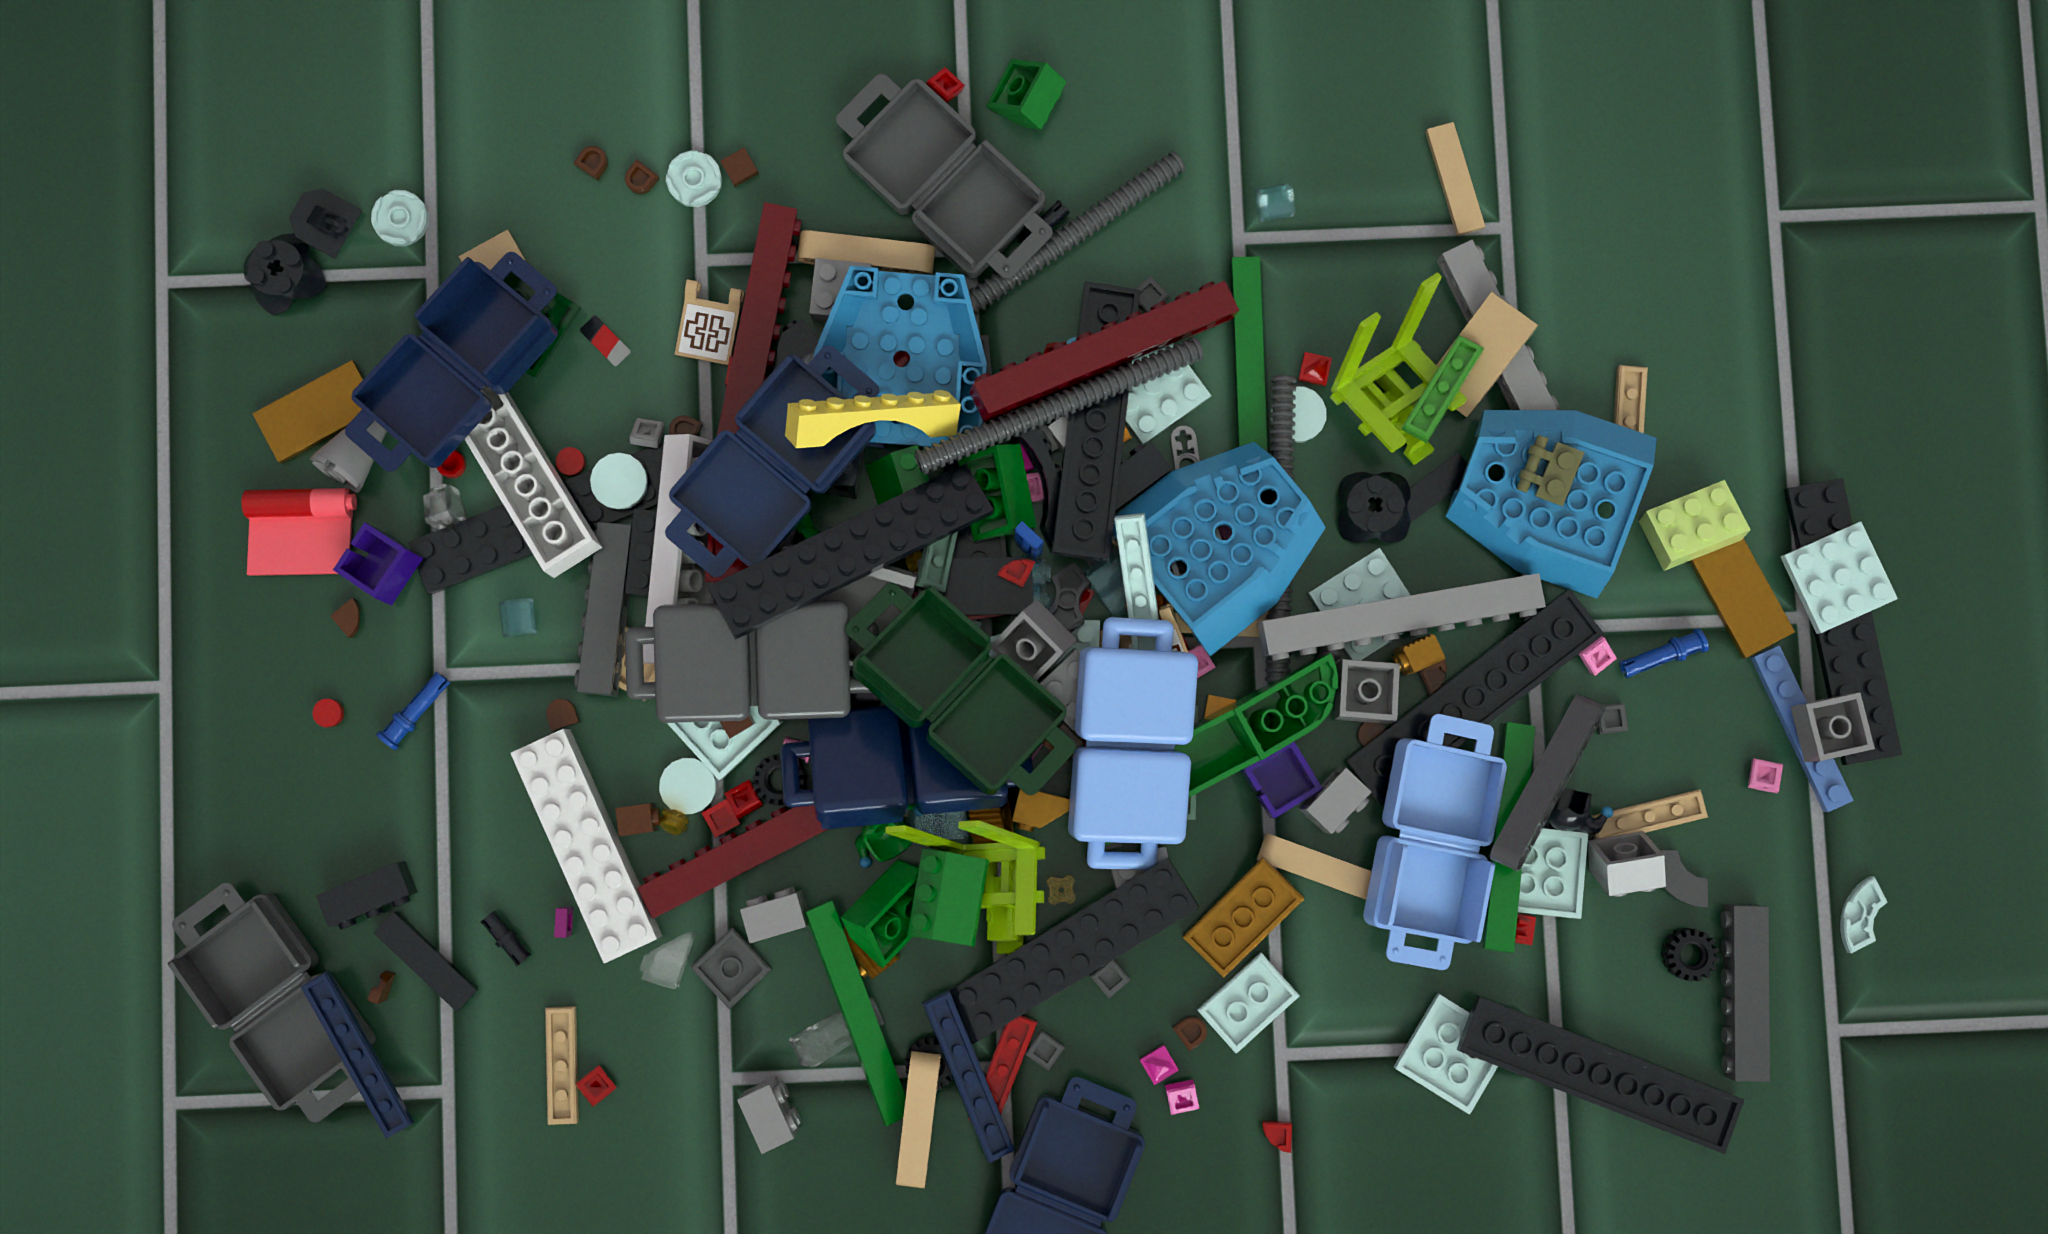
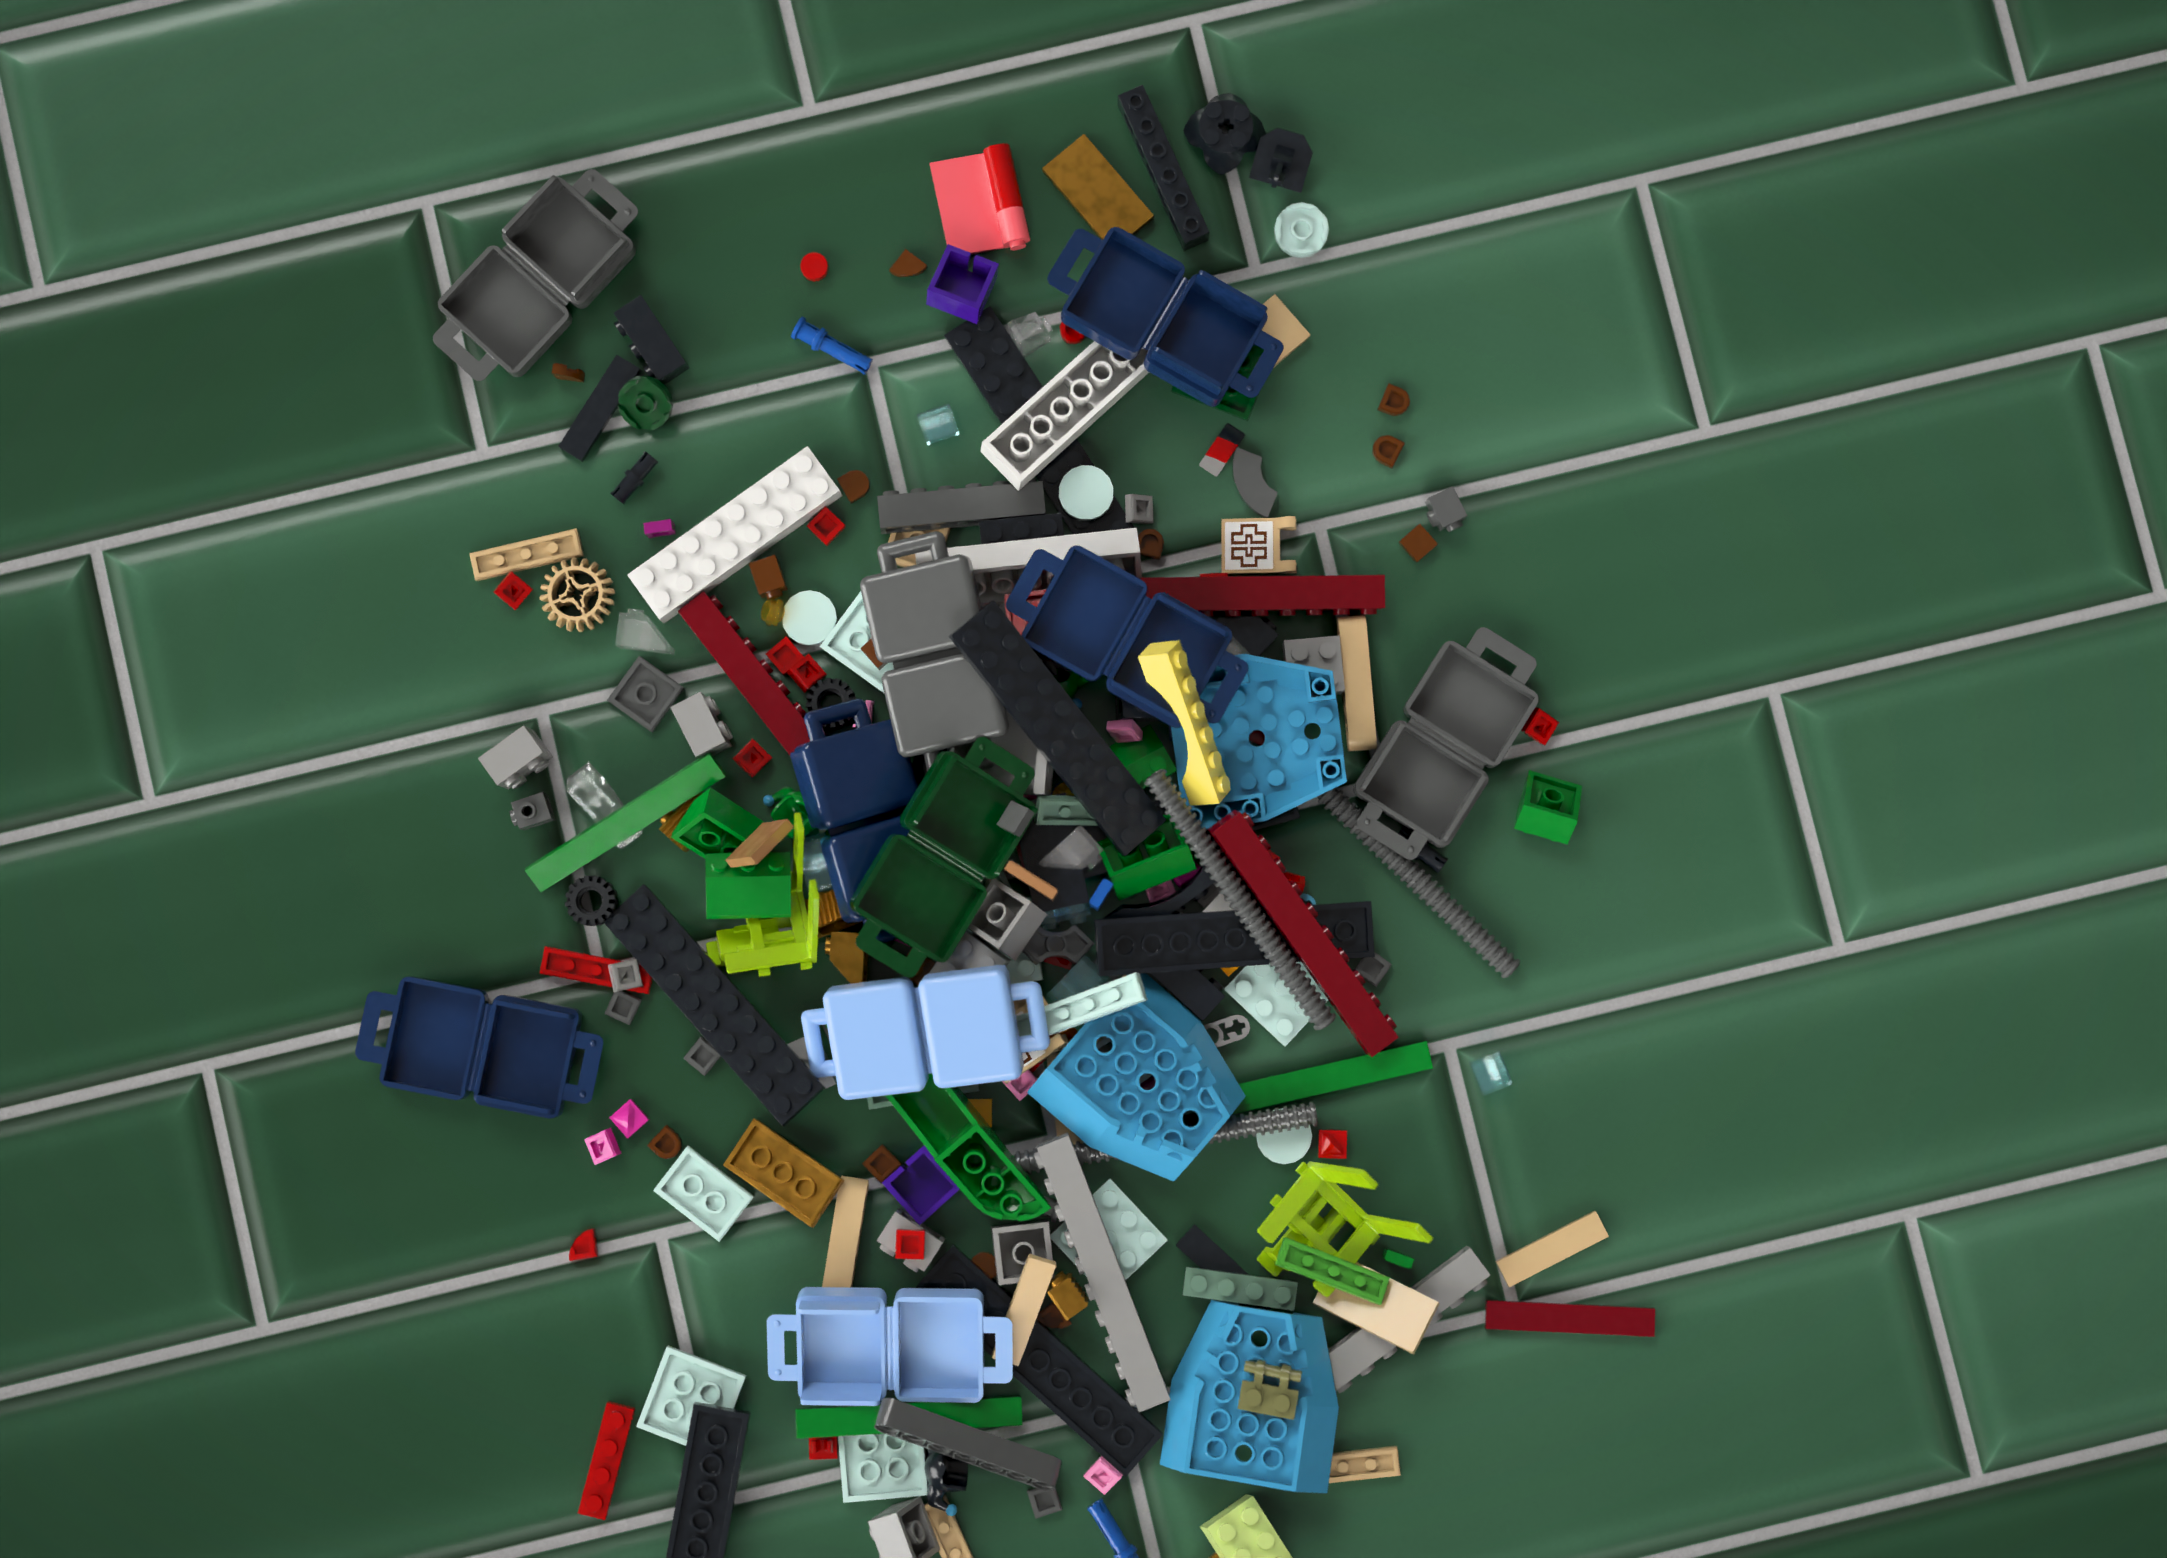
camera: 85 degrees right, 0 degrees up
(304, 340) = (1163, 168): none -> black brick
(345, 461) = (1055, 229): light grey cone -> none
(357, 1054) = (501, 365): dark blue tile -> none
(430, 912) = (645, 402): none -> dark green tile
(570, 461) = (1097, 442): red tile -> none
(597, 751) = (826, 526): none -> red tile
(615, 1032) = (566, 598): none -> tan gear
(644, 318) = (1250, 483): none -> dark grey tile
(694, 178) = (1397, 501): light aqua tile -> none
(712, 132) = (1445, 510): none -> dark grey brick
(818, 871) = (752, 758): none -> red tile
(827, 1107) = (532, 811): none -> dark grey brick
(867, 490) = (1124, 730): none -> bright pink tile
(908, 876) = (759, 843): none -> medium nougat tile
(918, 1119) = (536, 898): tan beam -> none
(935, 609) = (1015, 818): none -> dark grey tile
(968, 1076) = (585, 938): dark blue tile -> none
(980, 559) = (1074, 852): none -> clear slope
(1001, 606) = (1031, 880): none -> medium nougat tile
(1014, 1042) = (625, 975): none -> light grey tile
(1017, 571) = (1071, 890): red tile -> none
(1055, 896) = (770, 988): clear yellow plate -> none
(1251, 817) = (882, 1163): none -> reddish brown tile
(1342, 800) = (910, 1244): none -> red tile
(1360, 524) = (1193, 1246): black brick -> none
(1418, 694) = (1027, 1302): none -> tan tile
(1438, 327) = (1397, 1258): none -> green tile
(1440, 485) = (1240, 1288): none -> sand green plate
(1496, 1151) = (606, 1460): none -> red plate
(1524, 176) = (1570, 1318): none -> dark red tile

